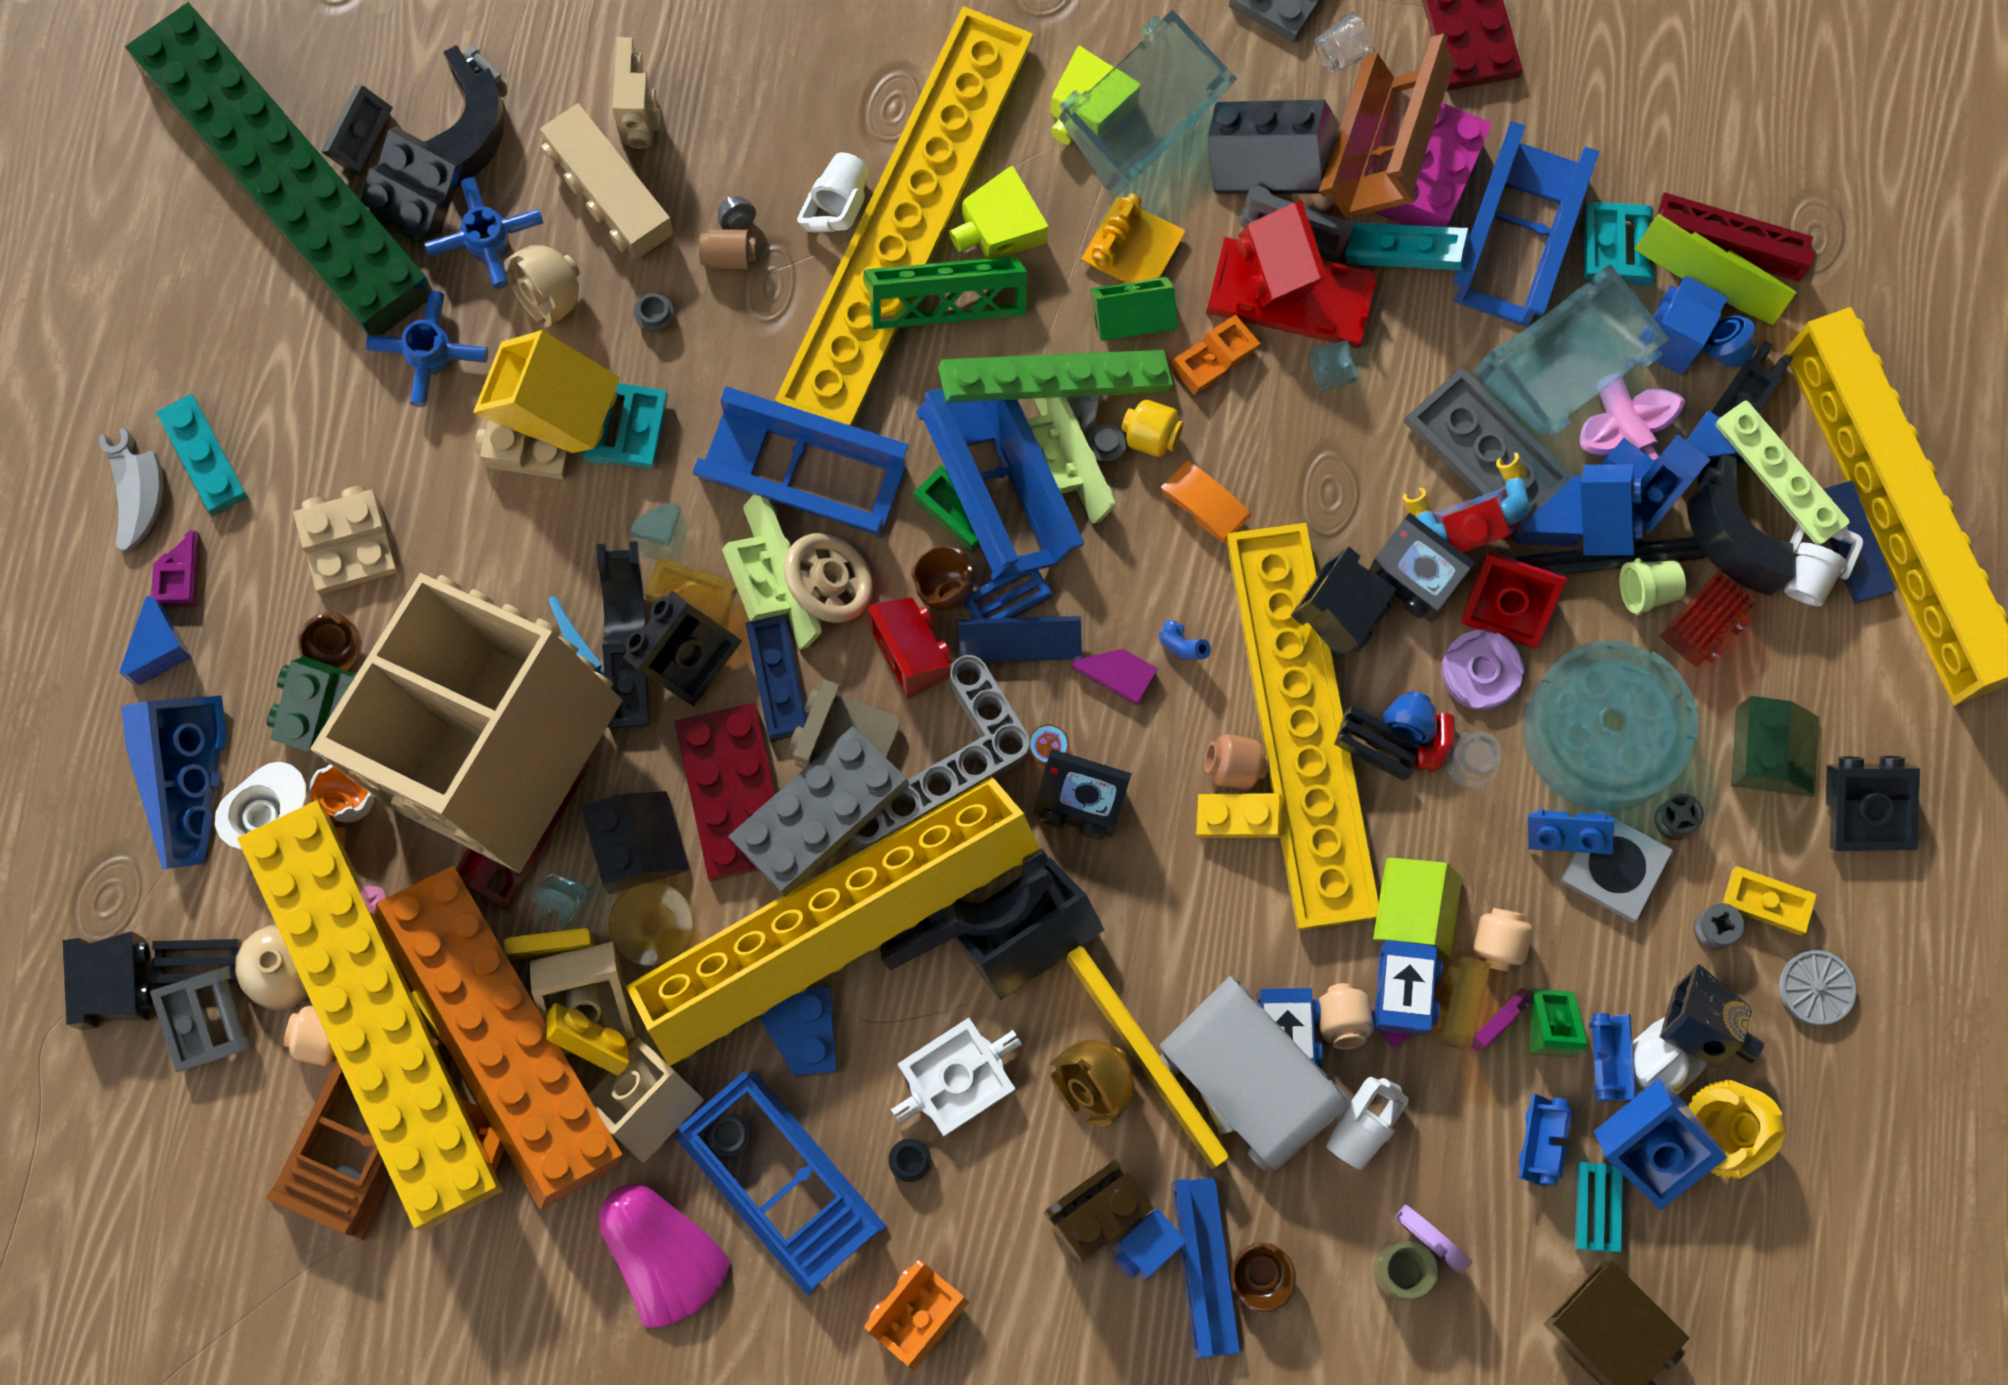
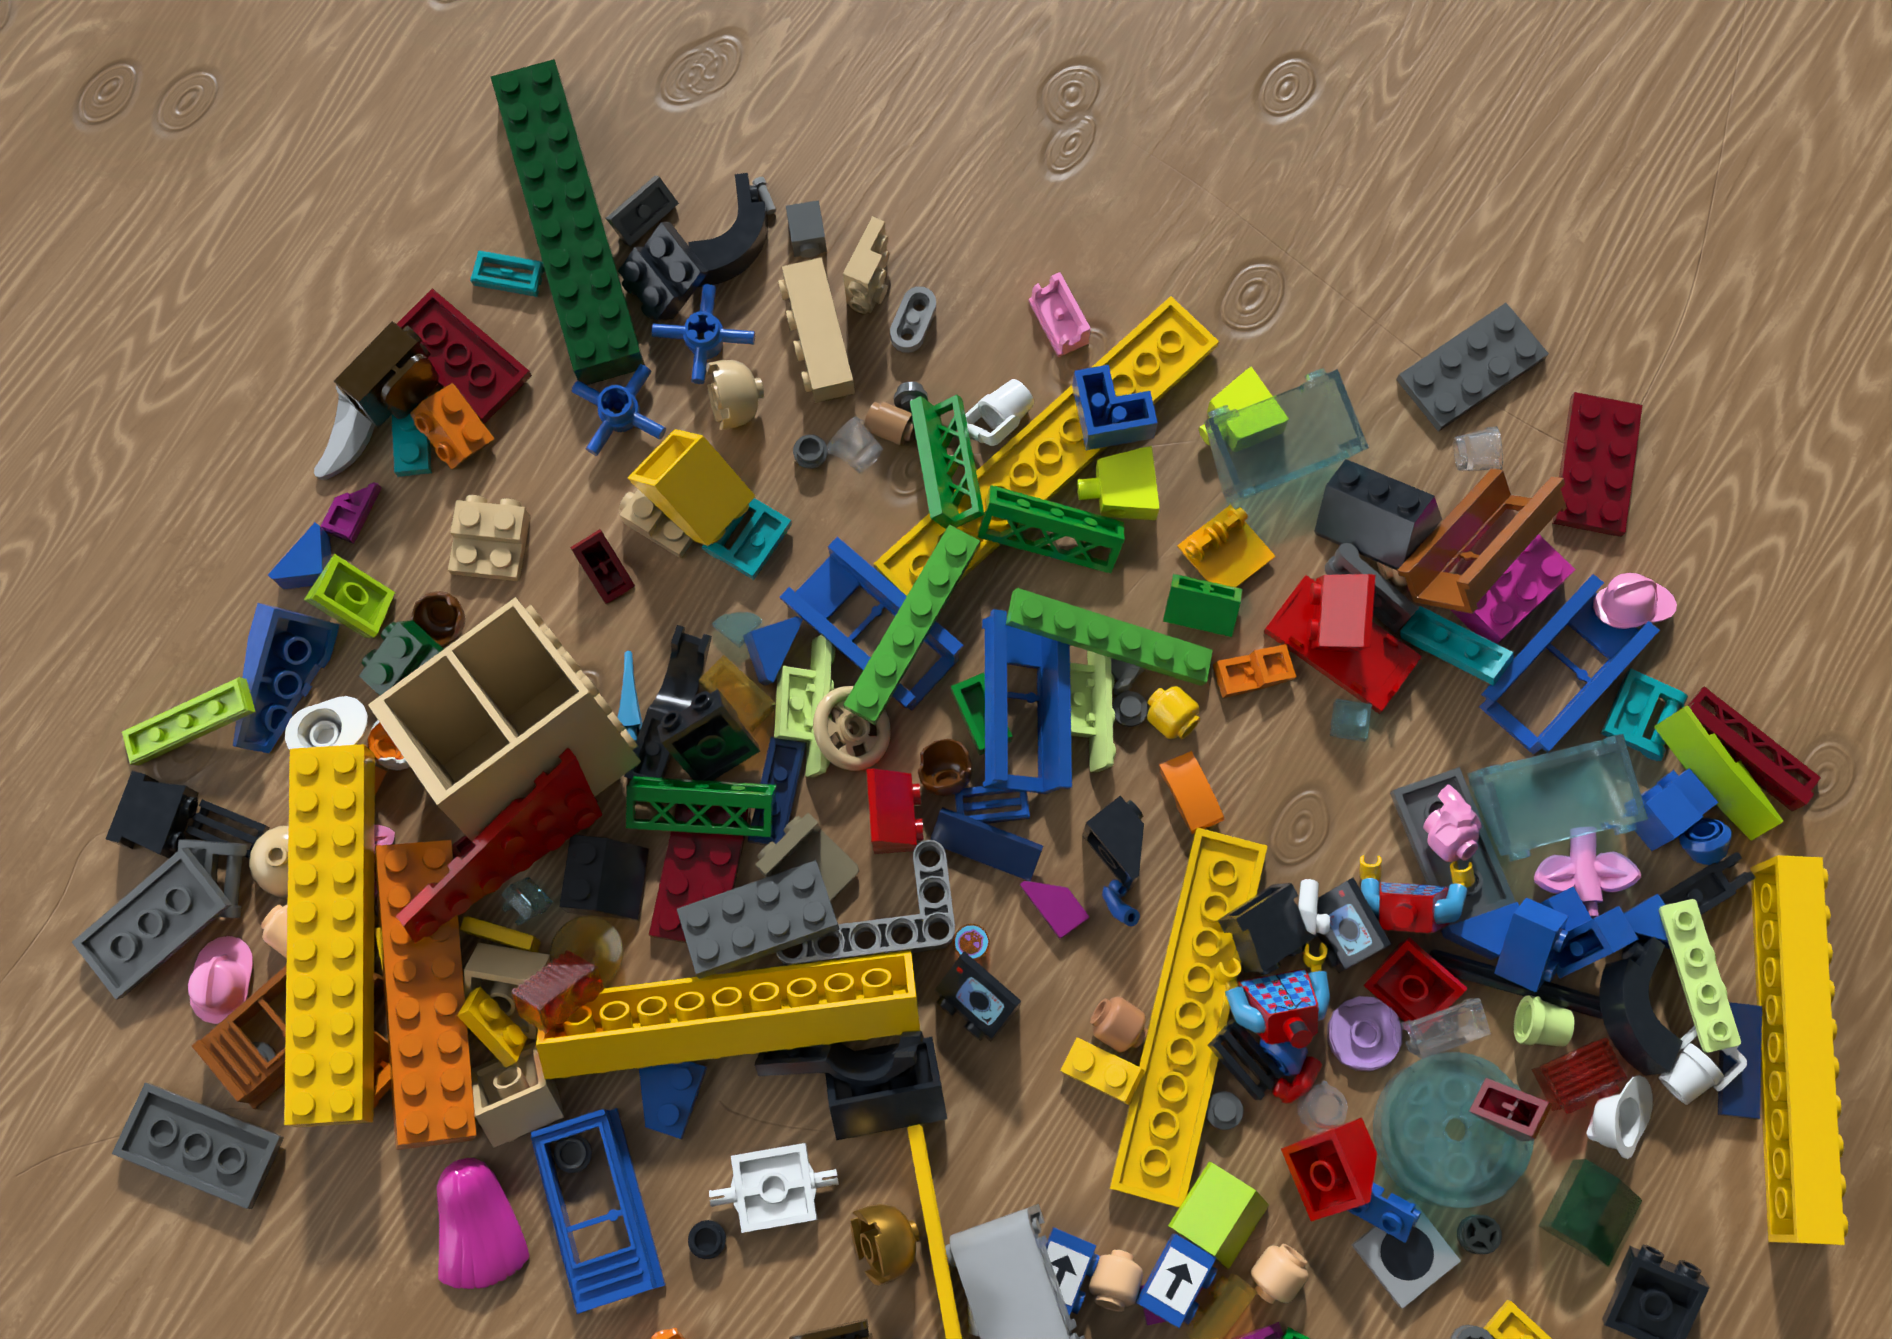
camera: 30 degrees right, 0 degrees up
(100, 864) = (188, 721): none -> lime tile
(159, 1092) = (151, 923): none -> dark grey plate
(161, 406) = (389, 376): none -> dark brown brick
(222, 360) = (465, 355): none -> dark red plate
(223, 661) = (351, 597): none -> lime slope
(236, 259) = (507, 285): none -> teal tile
(250, 436) = (451, 426): none -> orange bracket
(261, 1121) = (220, 978): none -> bright pink piece
(318, 1302) = (198, 1145): none -> dark grey plate
(484, 518) = (602, 566): none -> dark red slope
(524, 840) = (508, 845): none -> red wing
(545, 81) = (806, 229): none -> dark grey brick
(643, 969) = (557, 991): none -> clear red brick
(700, 287) = (855, 445): none -> clear piece
(701, 707) = (700, 793): none -> green fence
(702, 136) = (912, 321): none -> light grey plate
(704, 530) = (770, 646): none -> blue slope
(794, 269) = (935, 460): none -> green fence
(846, 444) = (911, 624): none -> bright green plate
(856, 70) = (1060, 316): none -> bright pink hinge
(952, 151) = (1109, 418): none -> blue brick
(1155, 577) = (1118, 839): none -> black slope
(1377, 565) = (1307, 906): none -> white arm
(1378, 803) = (1224, 1110): none -> dark grey plate
(1389, 672) = (1281, 1004): none -> torso
(1483, 427) = (1453, 828): none -> bright pink head
(1513, 810) = (1333, 1168): none -> red slope
(1560, 135) = (1633, 601): none -> bright pink piece
(1562, 627) = (1447, 1028): none -> clear hinge
(1661, 676) = (1510, 1110): none -> dark red slope
(1766, 644) = (1623, 1117): none -> white piece

